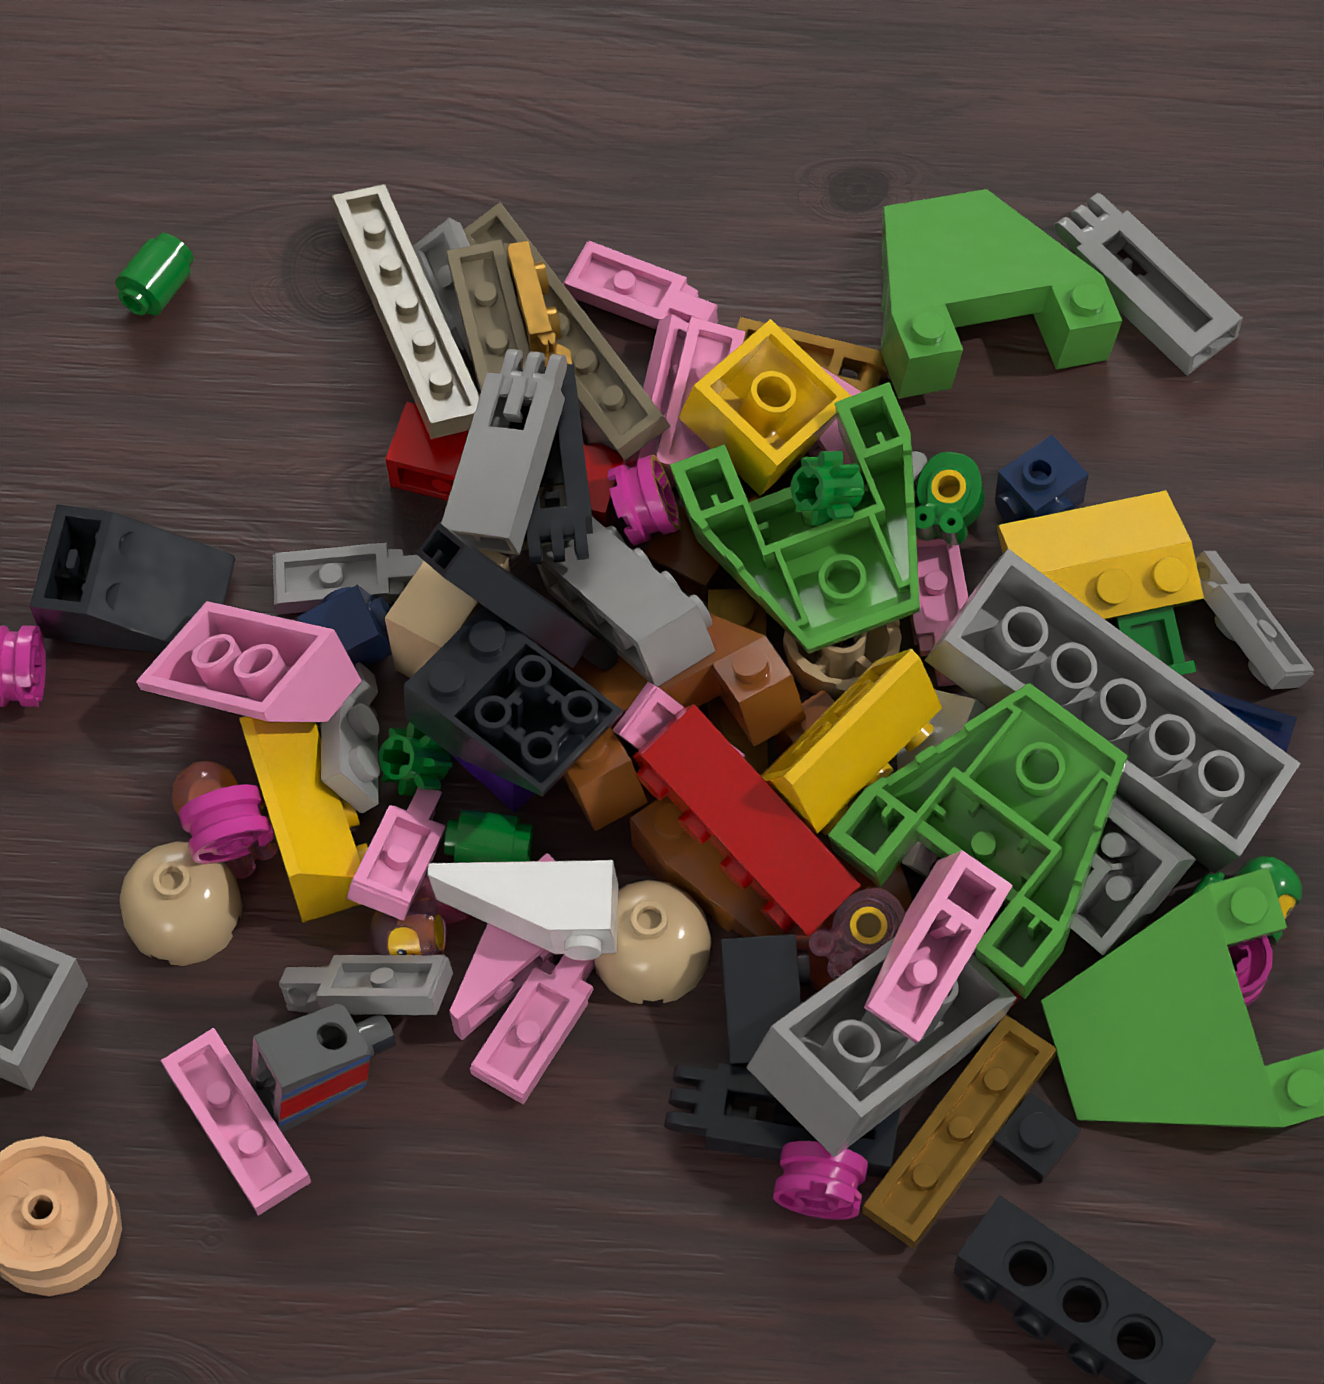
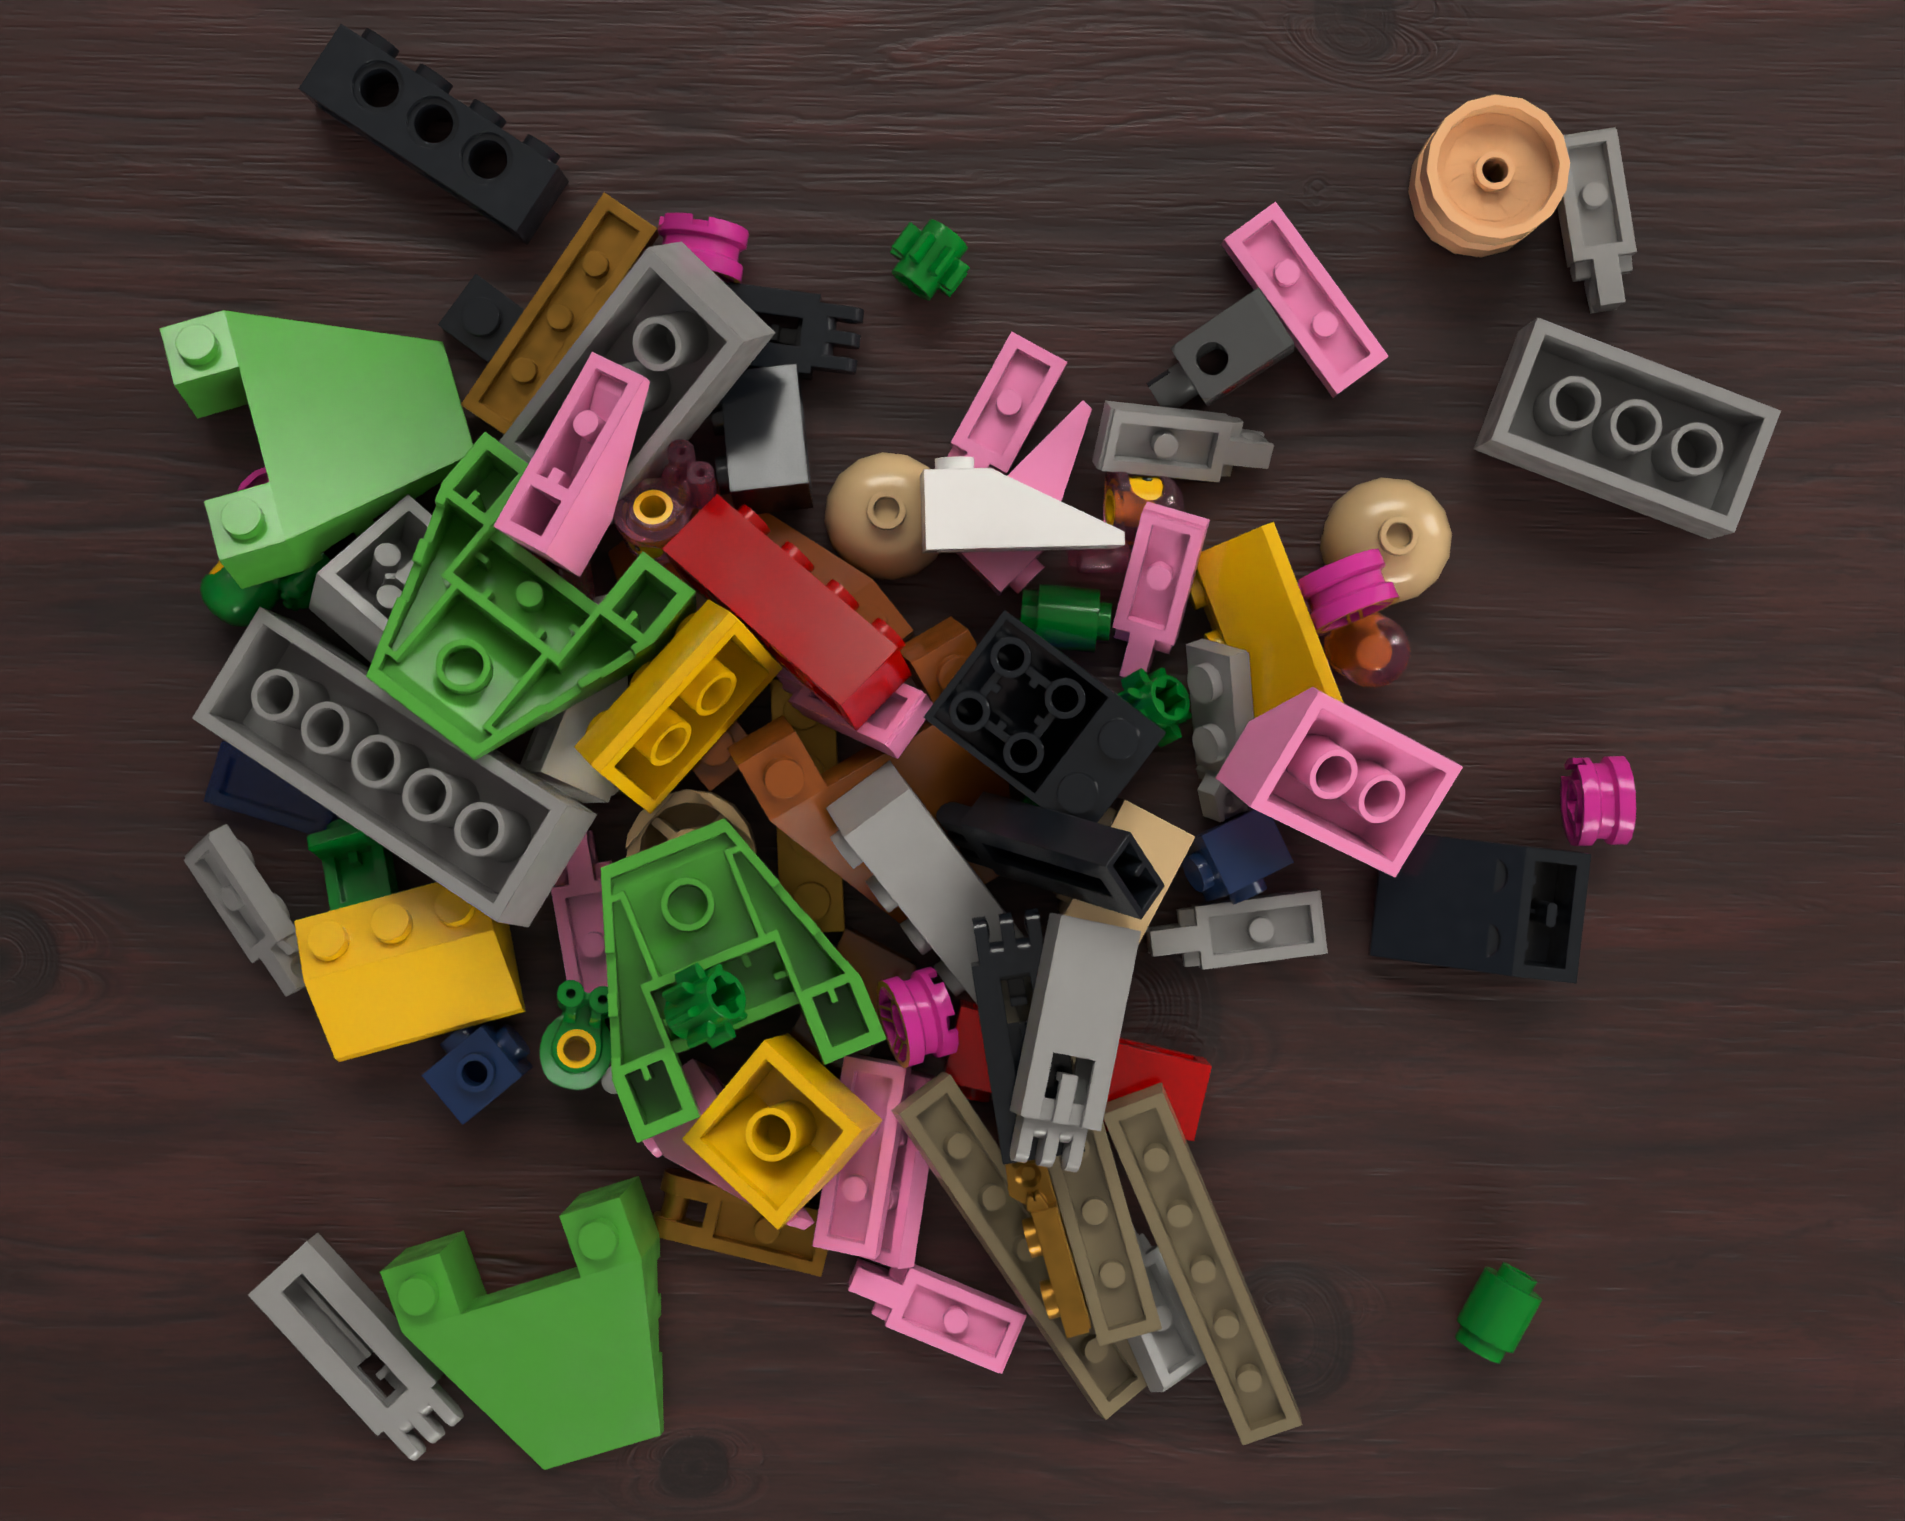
camera: 175 degrees right, 25 degrees up
(597, 1166) = (929, 259): none -> green gear

